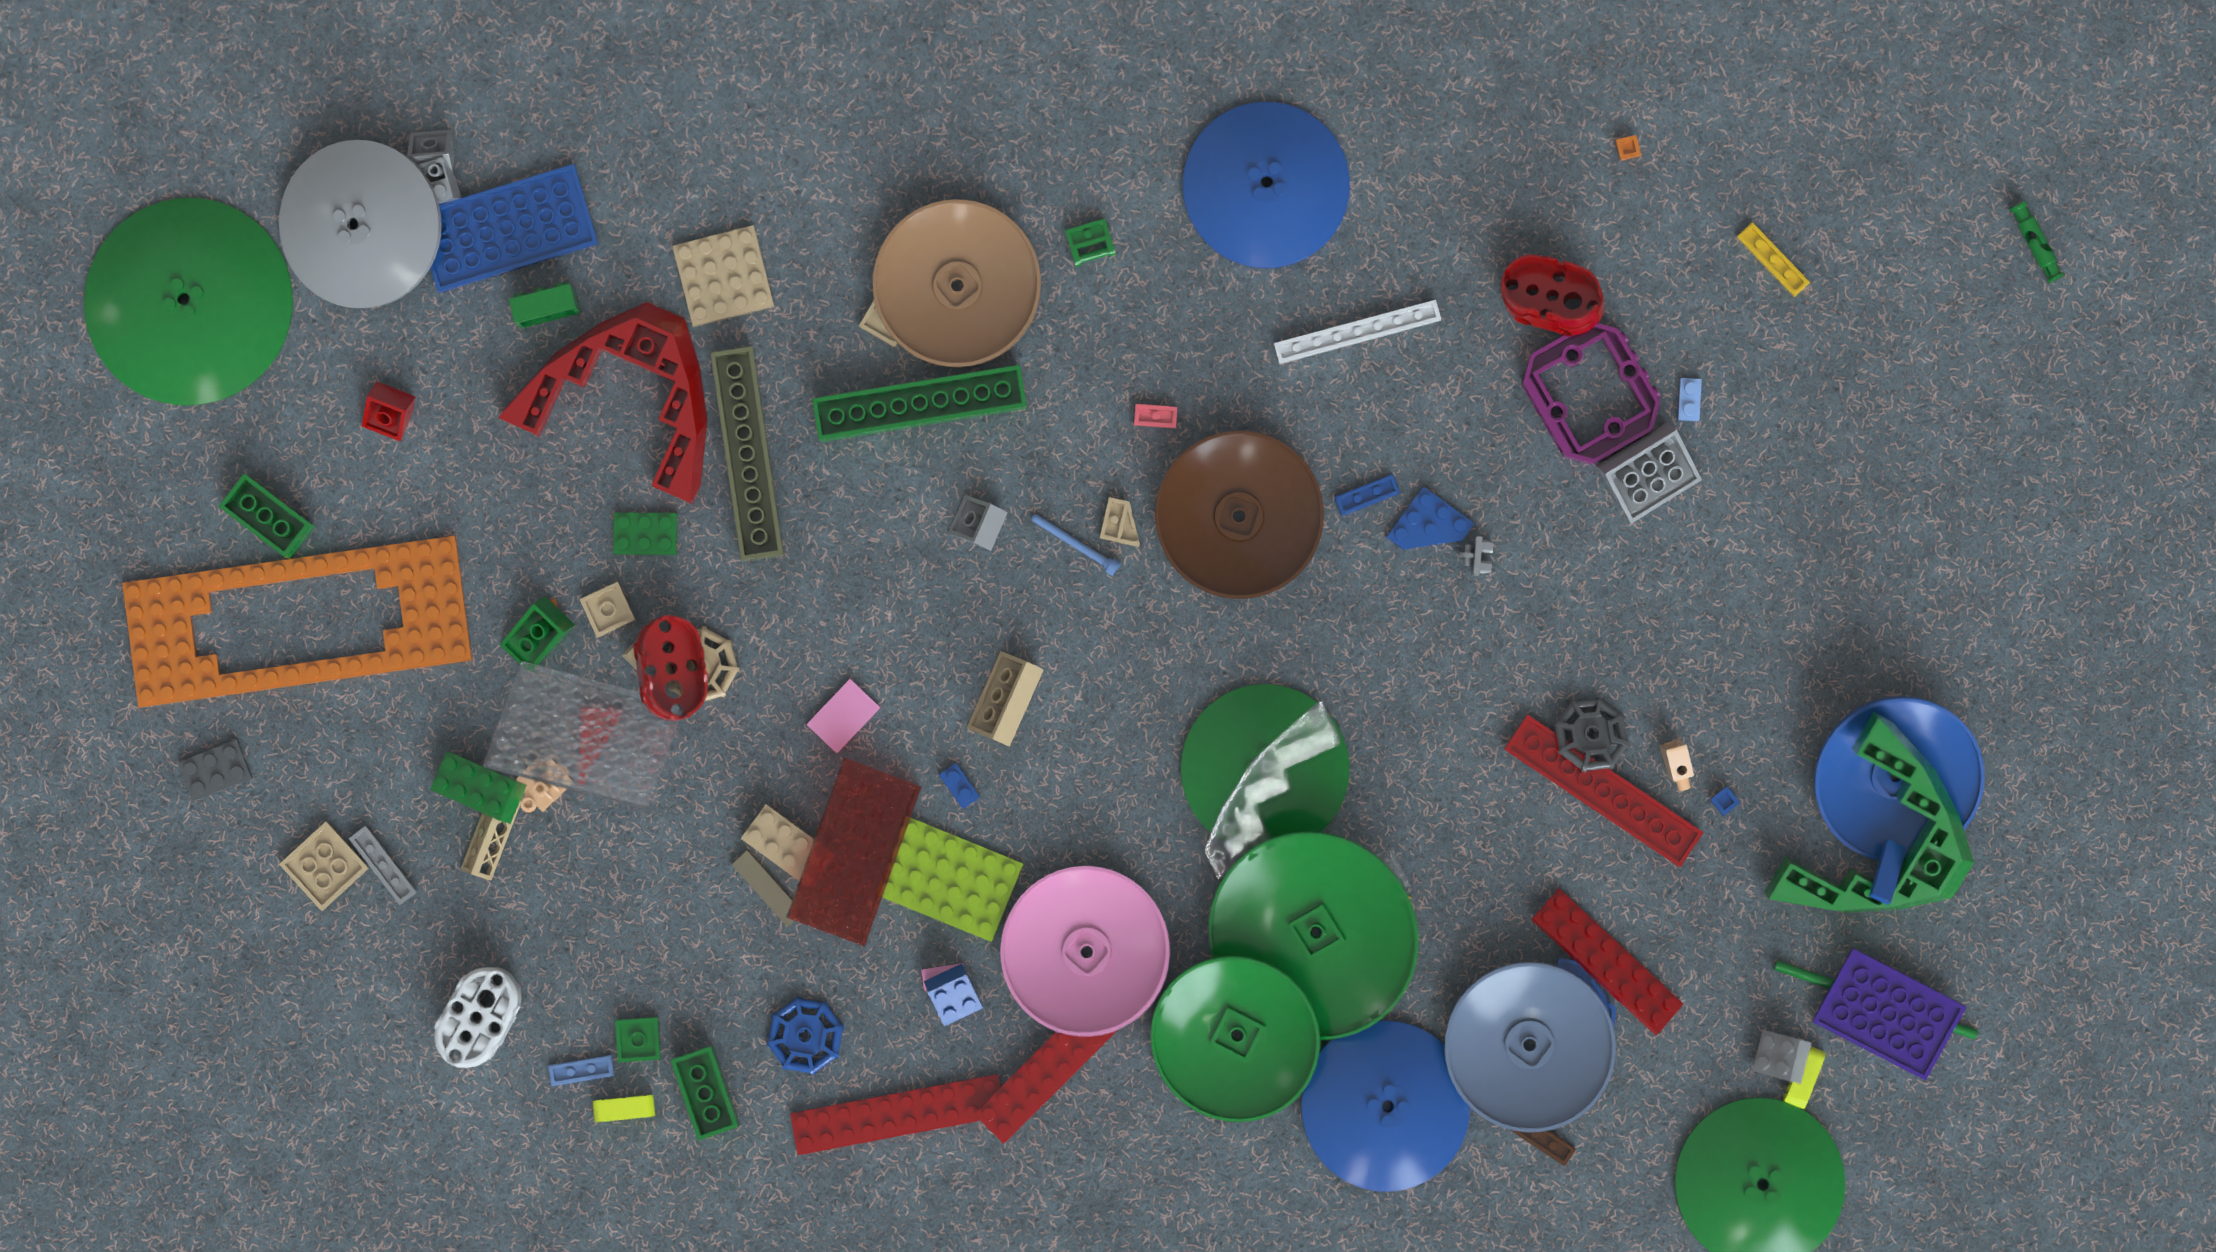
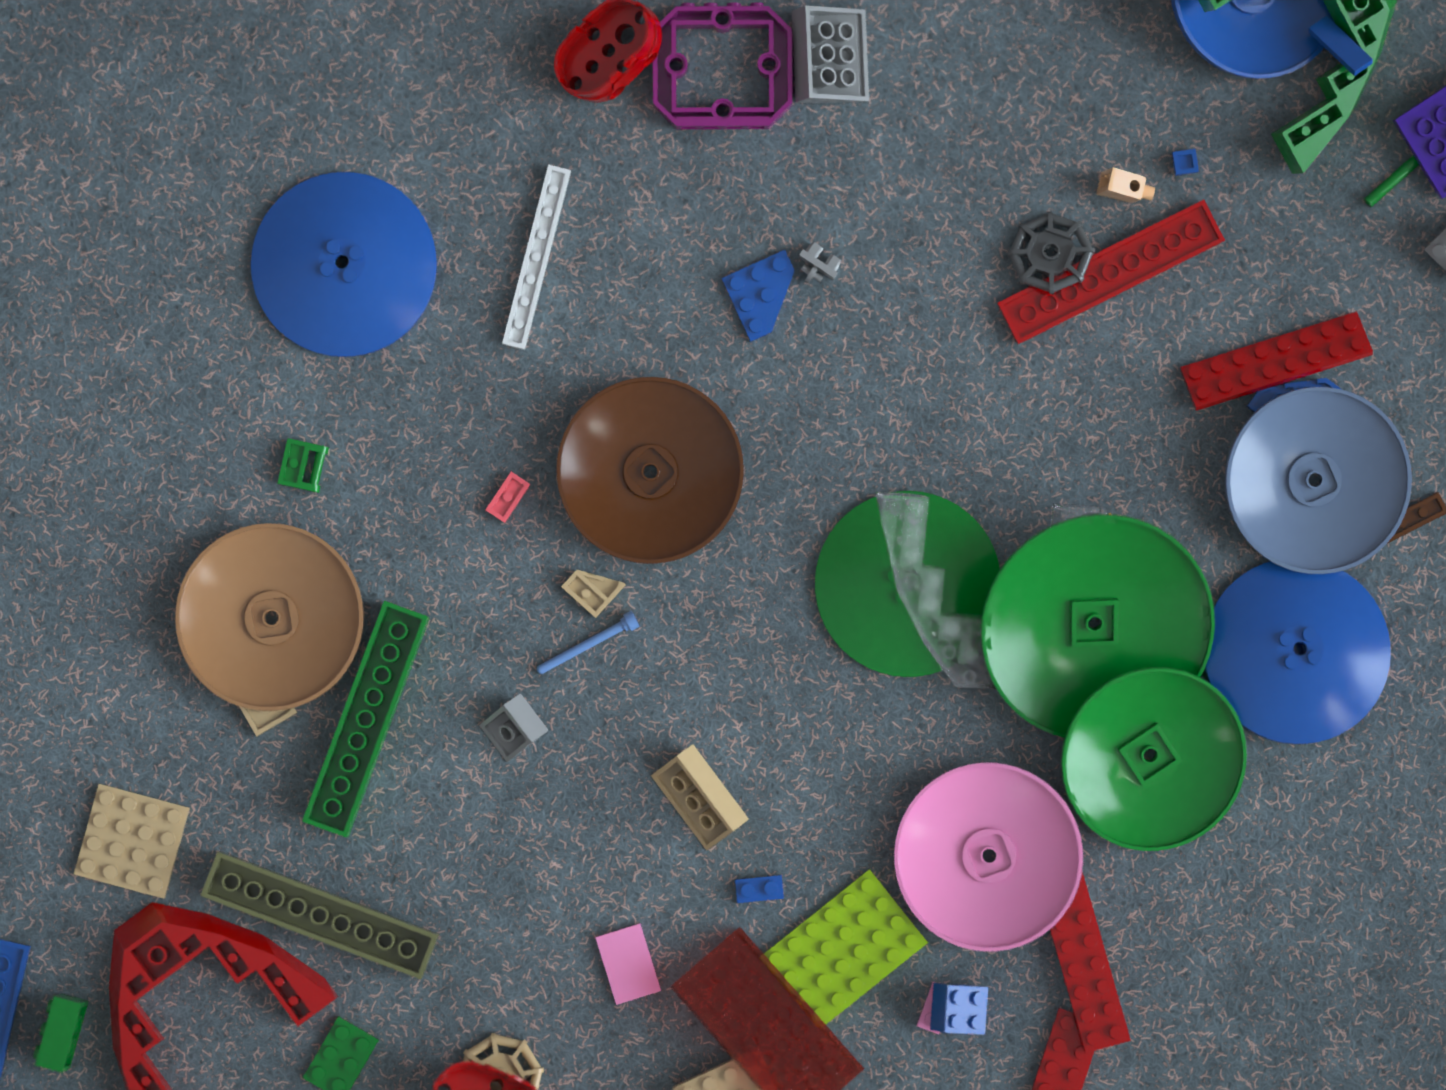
camera: 70 degrees left, 0 degrees up
(1367, 495) = (699, 337): blue tile -> none

